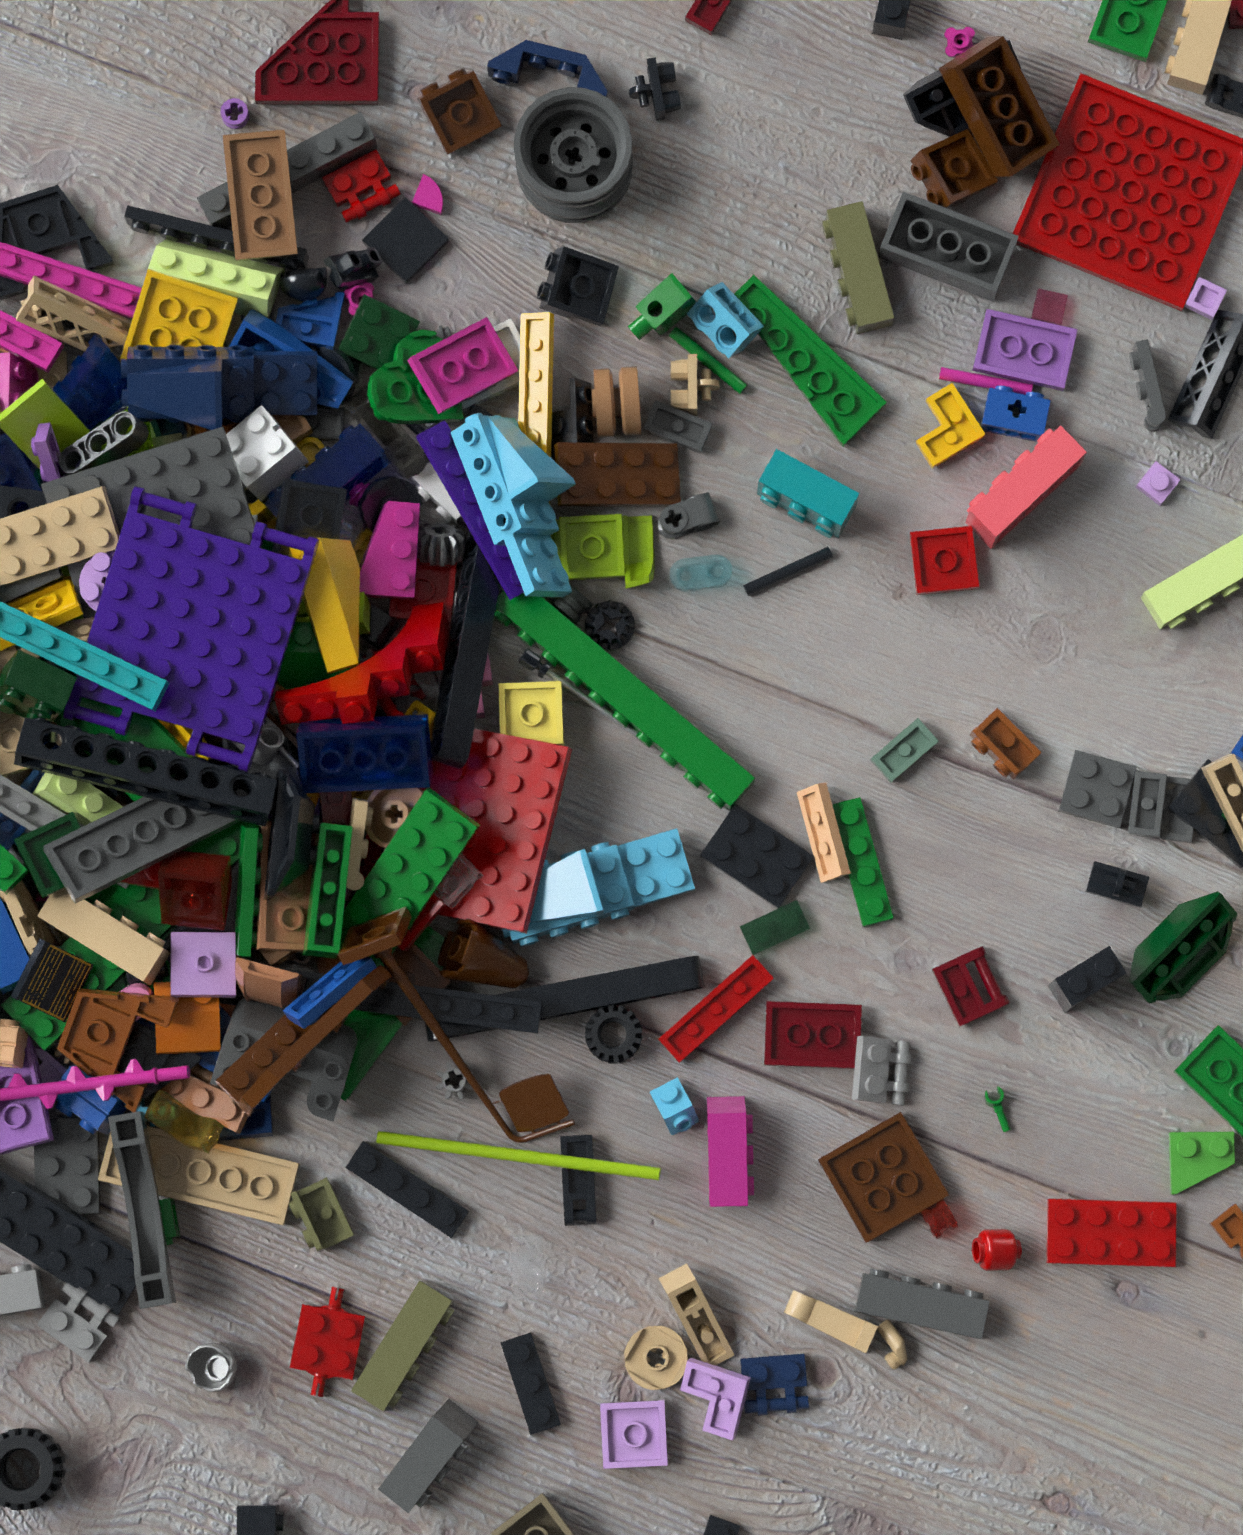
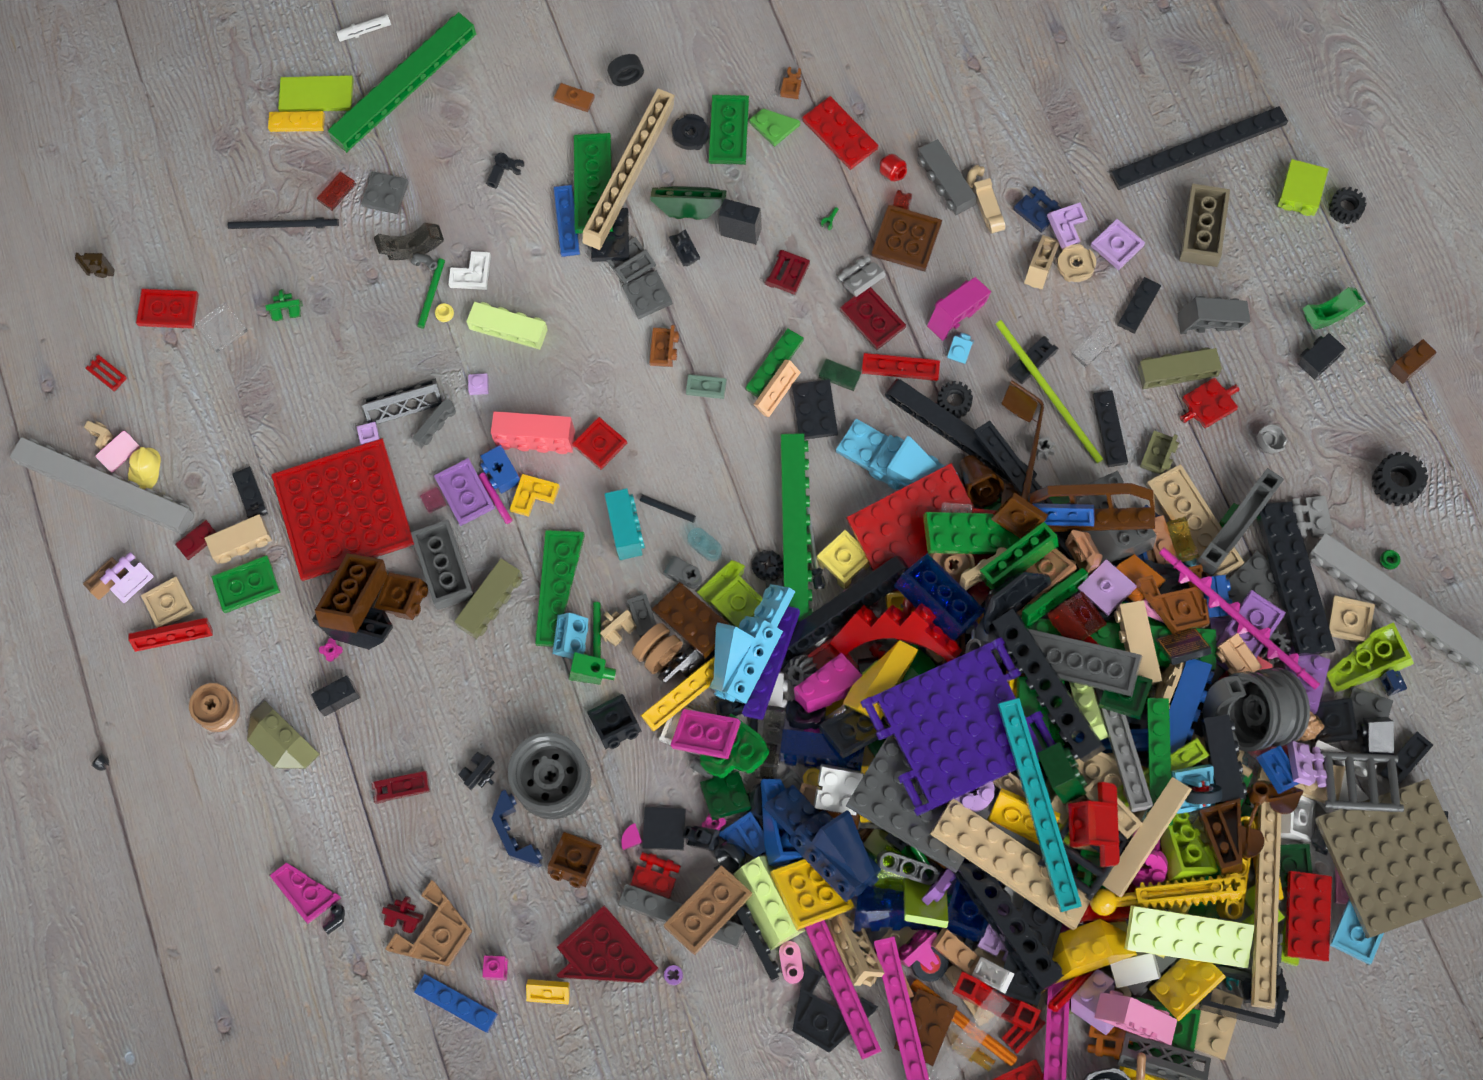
camera: 130 degrees left, 10 degrees down
(129, 250) = (791, 962): none -> bright pink plate

